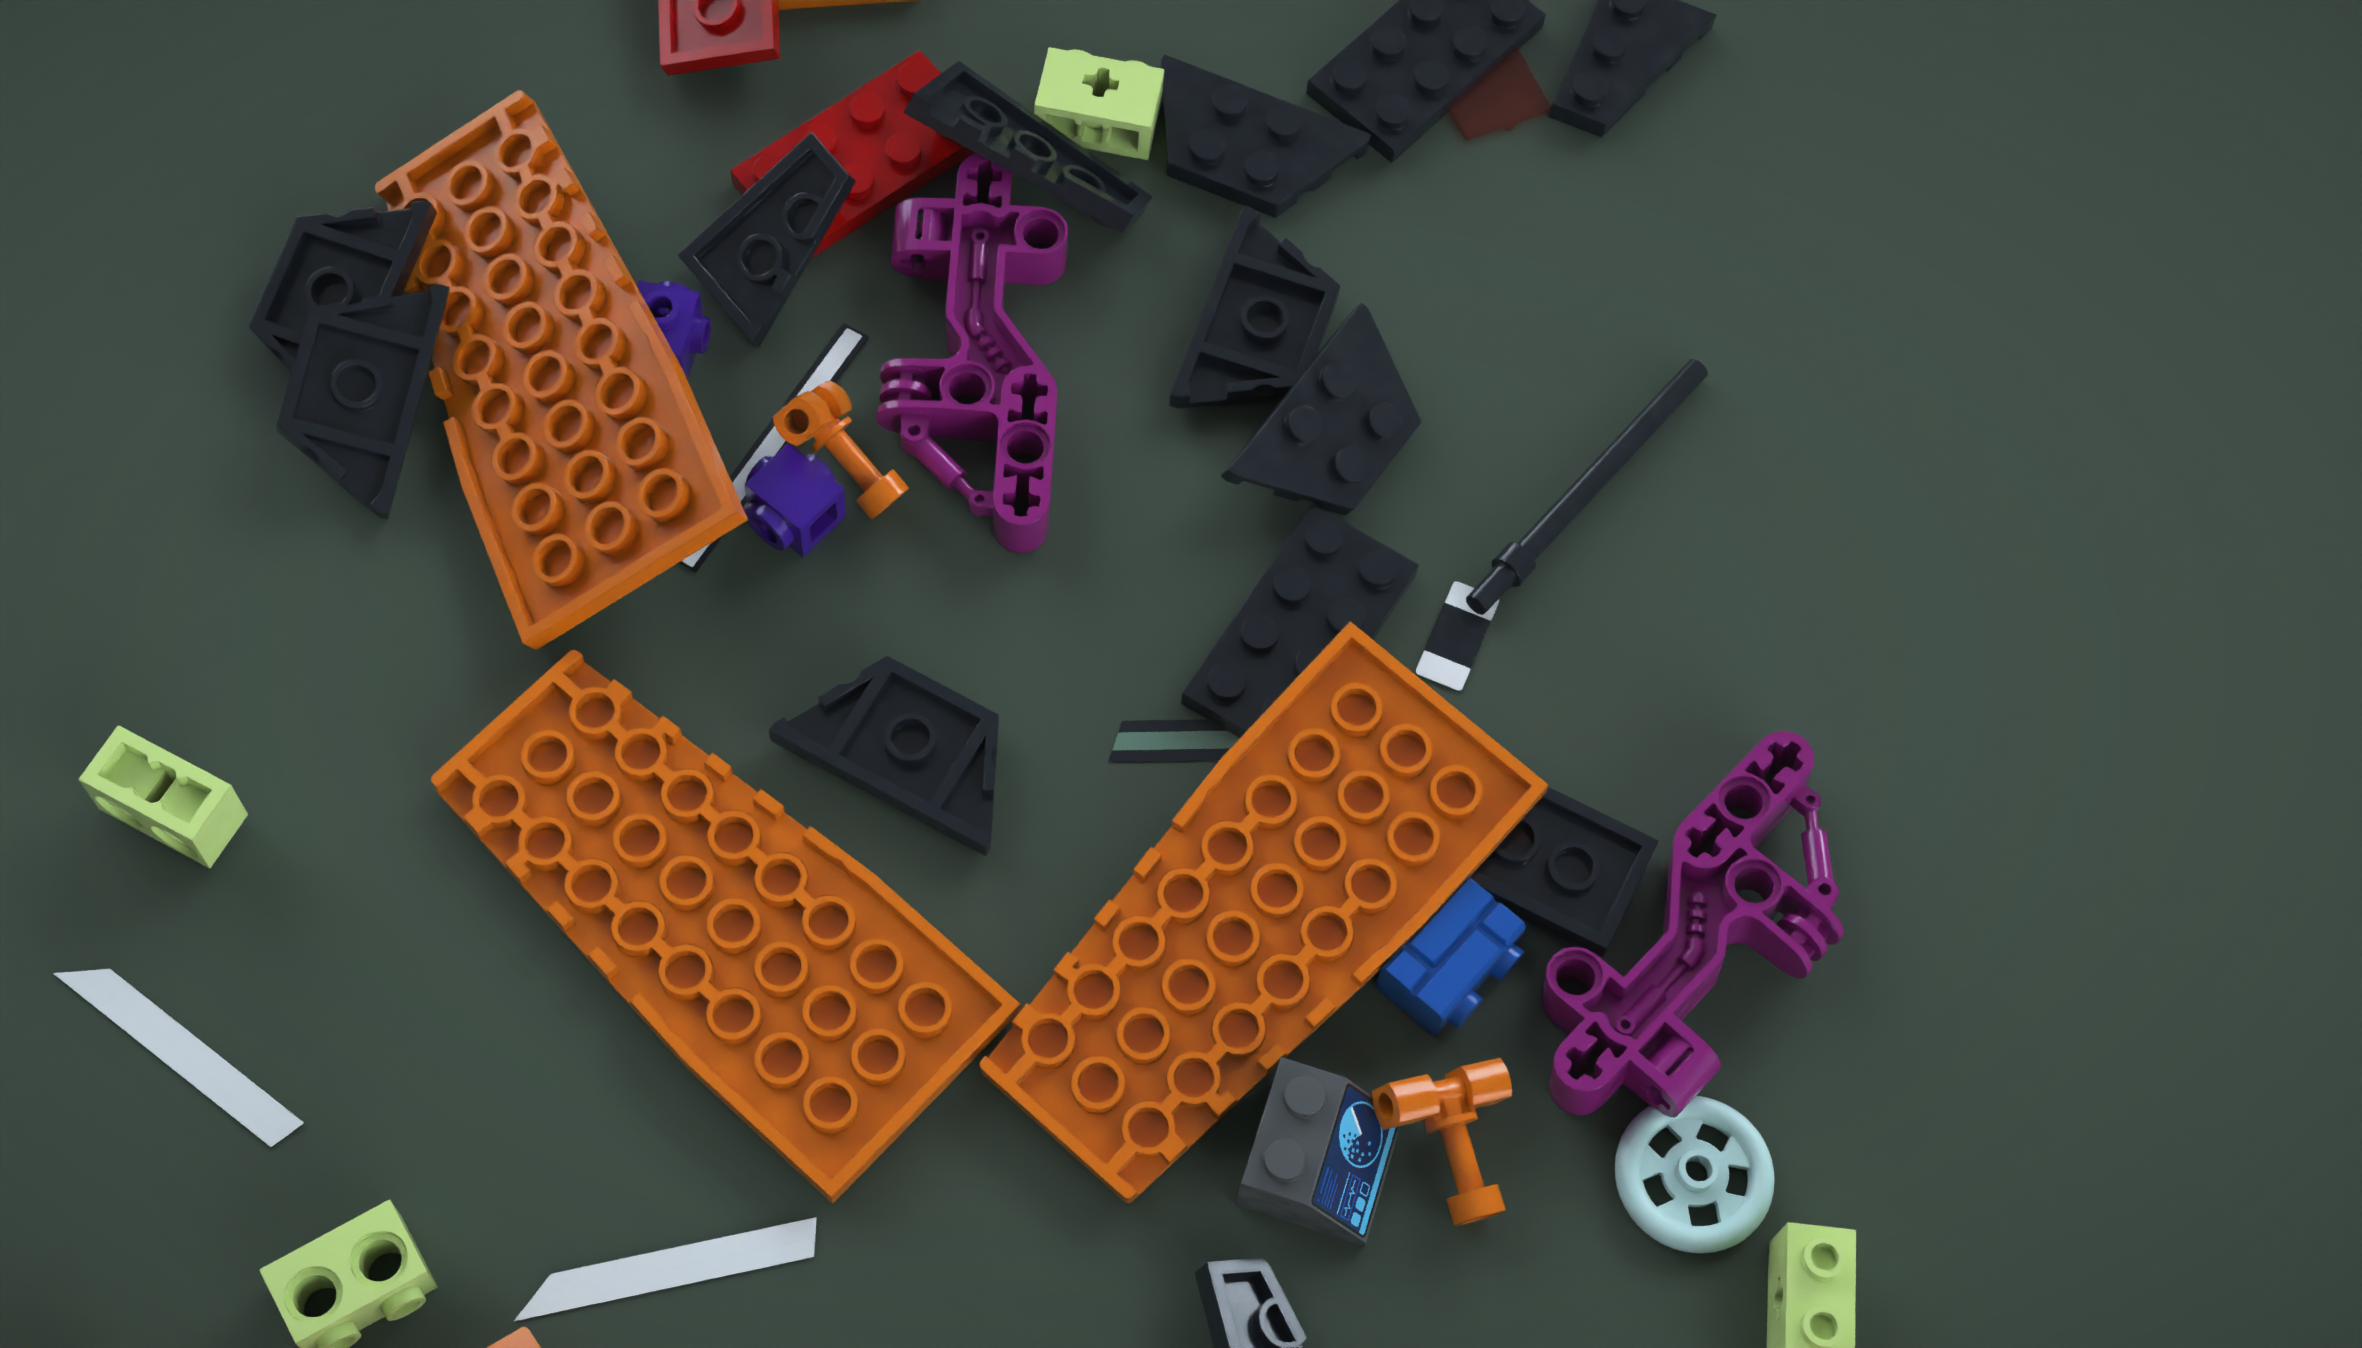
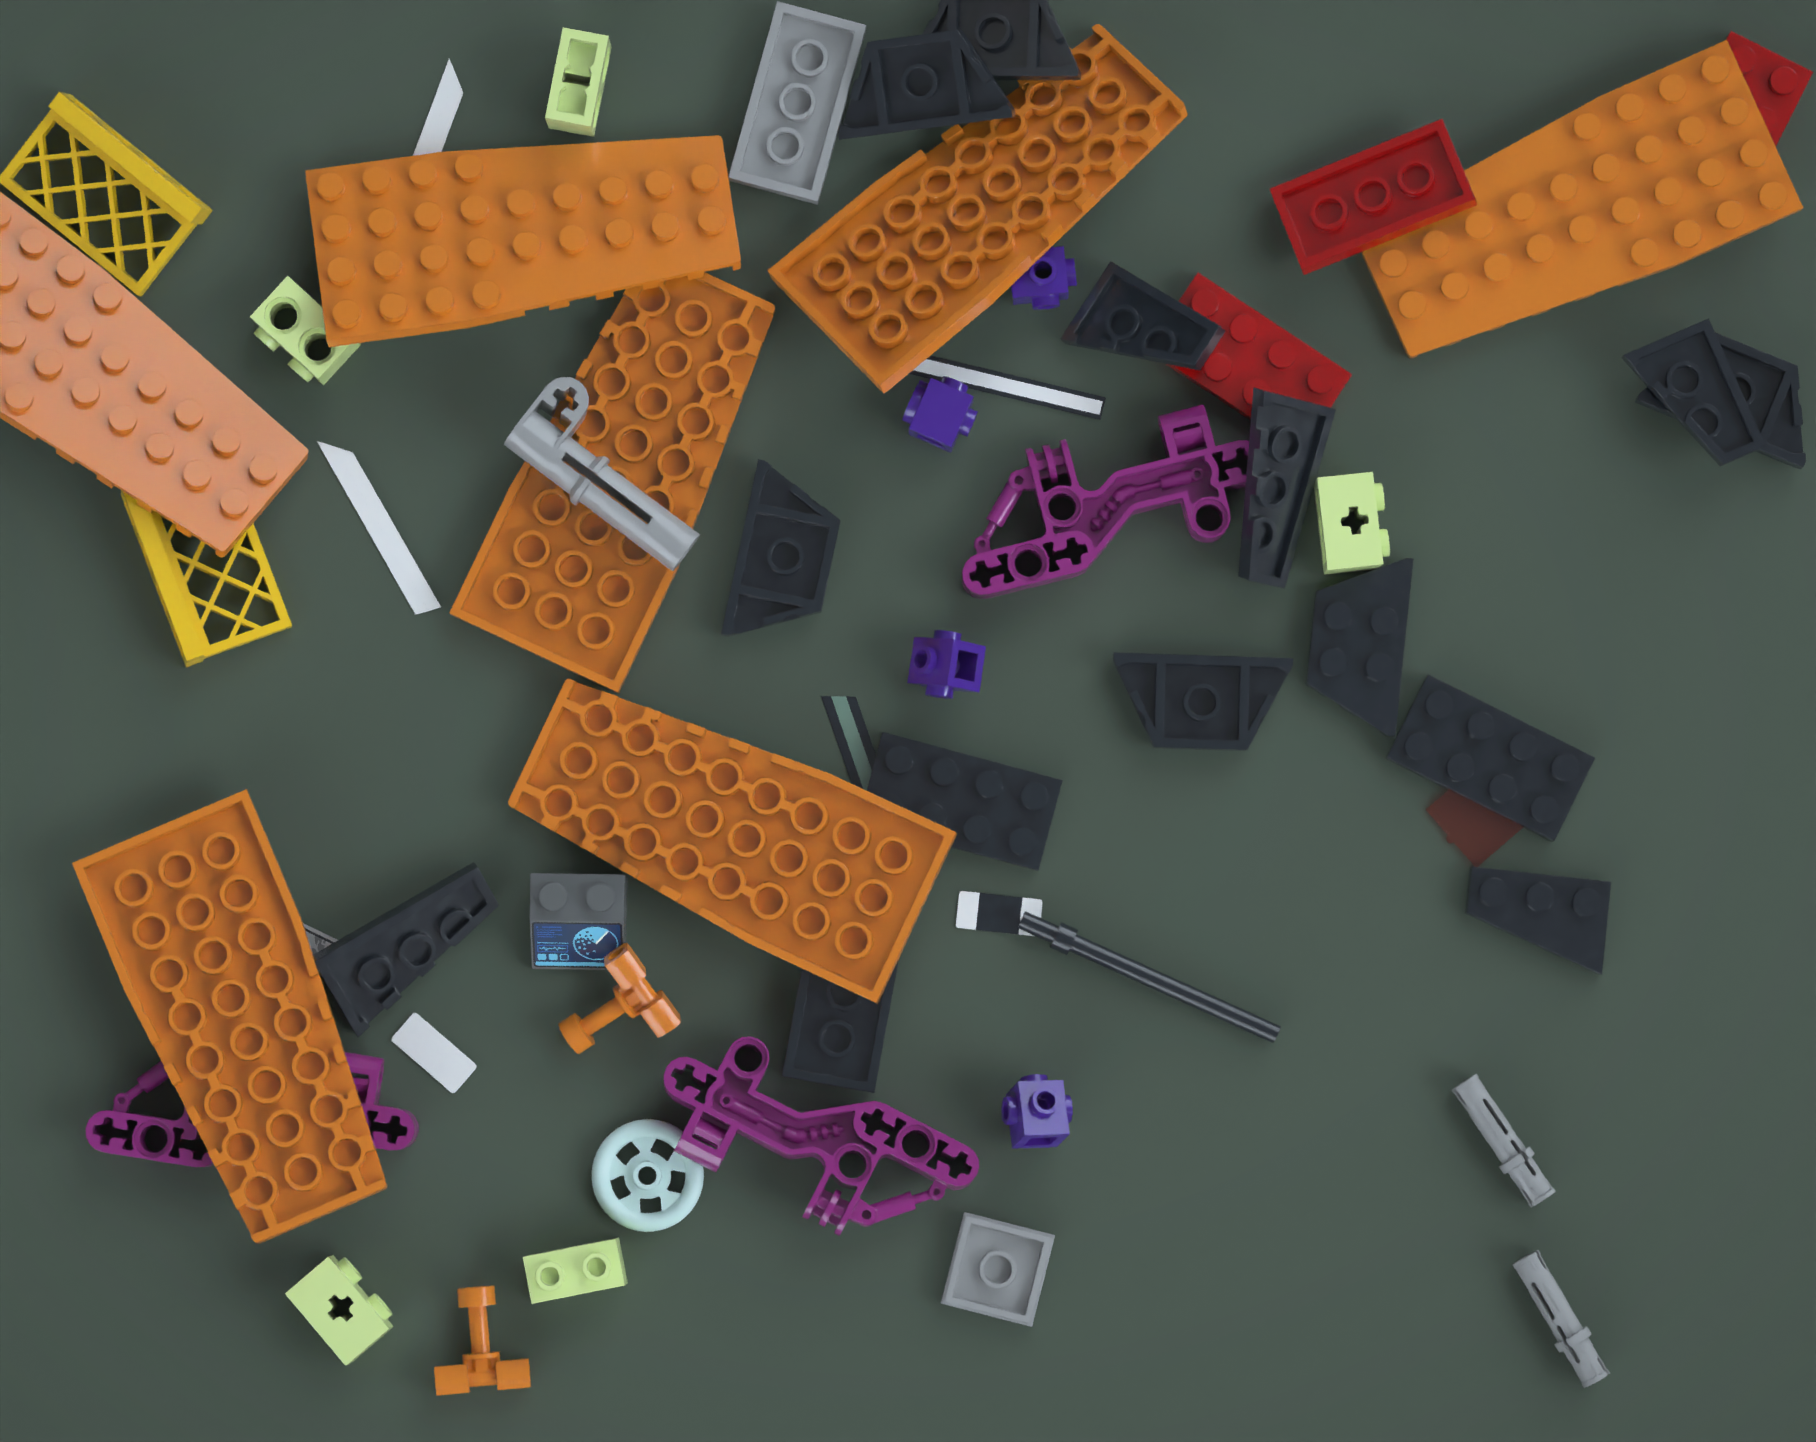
camera: 80 degrees right, 20 degrees up
(317, 548) = (797, 102): none -> light grey plate
(327, 959) = (512, 231): none -> orange wing
(716, 935) = (547, 449): none -> light grey piece
(819, 416) = (996, 414): orange bar -> none
(1121, 584) = (946, 664): none -> dark purple brick
(1333, 424) = (1129, 777): black wing -> none
(1451, 959) = (742, 972): blue brick -> none
(1735, 650) = (1037, 1112): none -> dark purple brick
(1908, 163) = (1503, 1140): none -> light grey pin
(1920, 770) = (997, 1269): none -> light grey tile
(2174, 162) = (1554, 1307): none -> light grey pin

